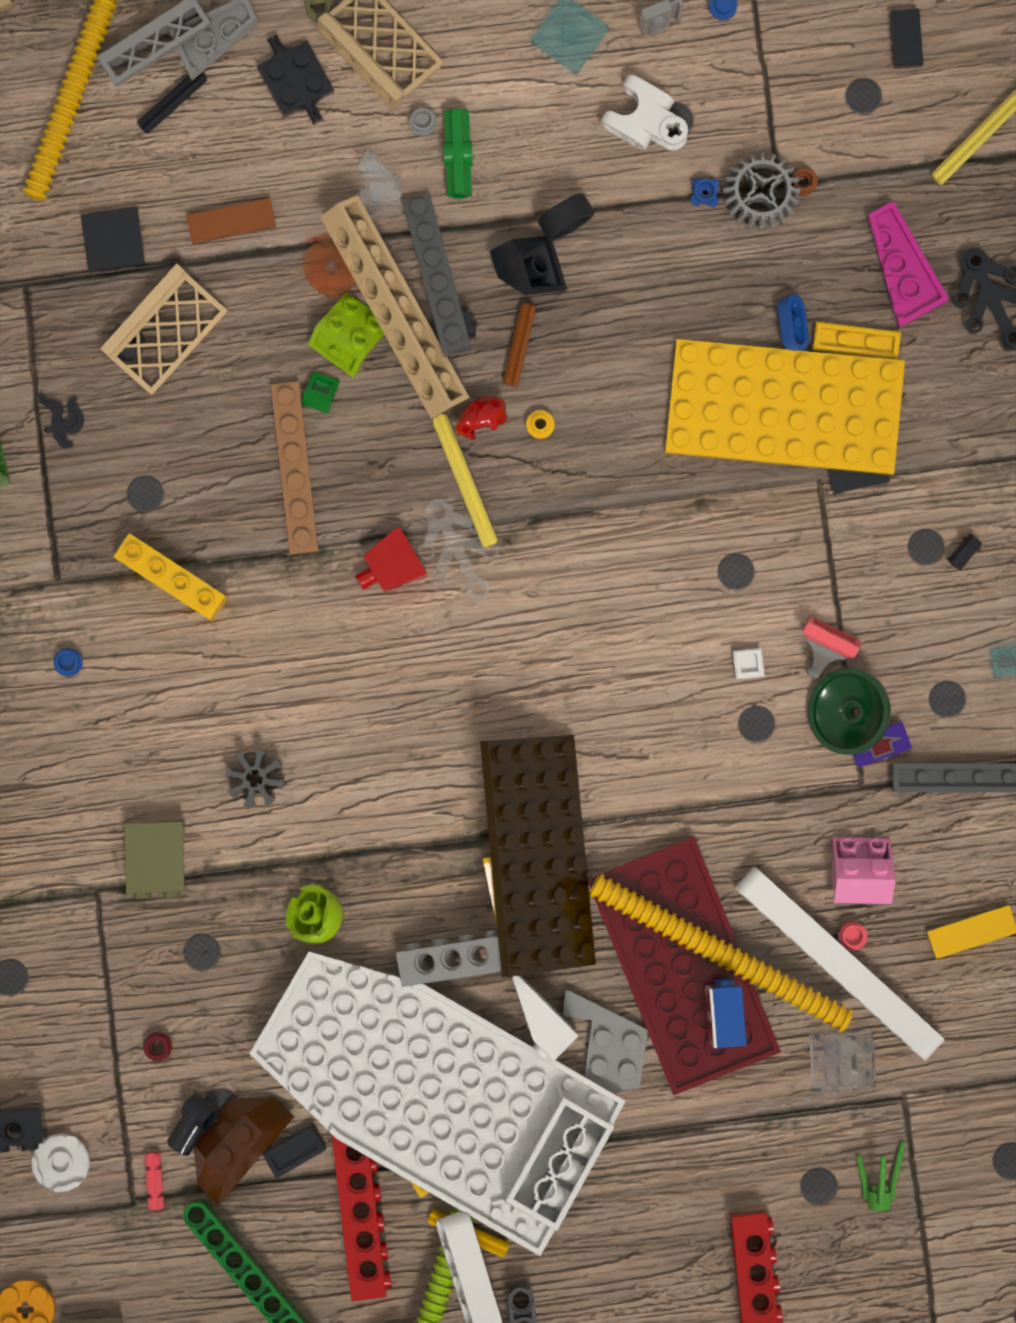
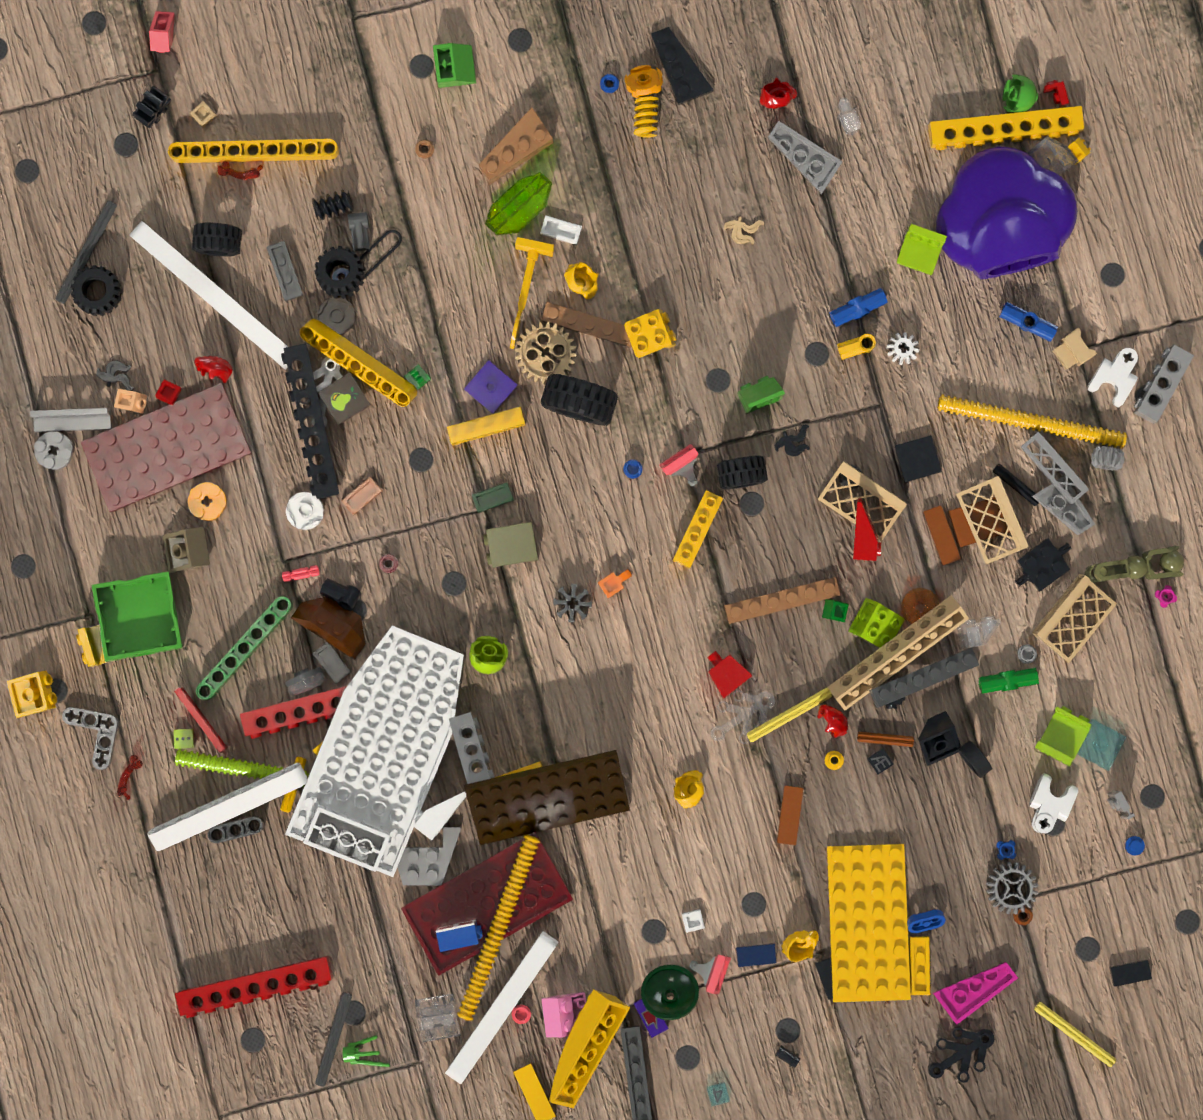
camera: 85 degrees right, 0 degrees up
(50, 1073) = (361, 495): none -> nougat tile
(71, 587) = (682, 464): none -> coral piece
(81, 877) = (492, 497): none -> dark green tile
(94, 499) = (742, 472): none -> black tyre
(213, 117) = (1008, 514): none -> tan fence
(218, 160) = (962, 529): none -> dark orange tile
(219, 331) = (866, 540): none -> red slope
(234, 715) = (612, 583): none -> orange plate
(315, 1195) = (305, 681): none -> clear piece
(549, 84) = (1064, 736): none -> lime panel
(551, 357) = (880, 761): none -> black tile
(553, 642) = (689, 788): none -> yellow hair
(612, 500) = (790, 815): none -> dark orange tile
(805, 511) = (800, 945): none -> yellow hair
(810, 578) = (756, 955): none -> dark blue tile
(854, 1221) = (333, 1039): none -> dark grey axle
(912, 845) = (586, 1046): none -> yellow slope

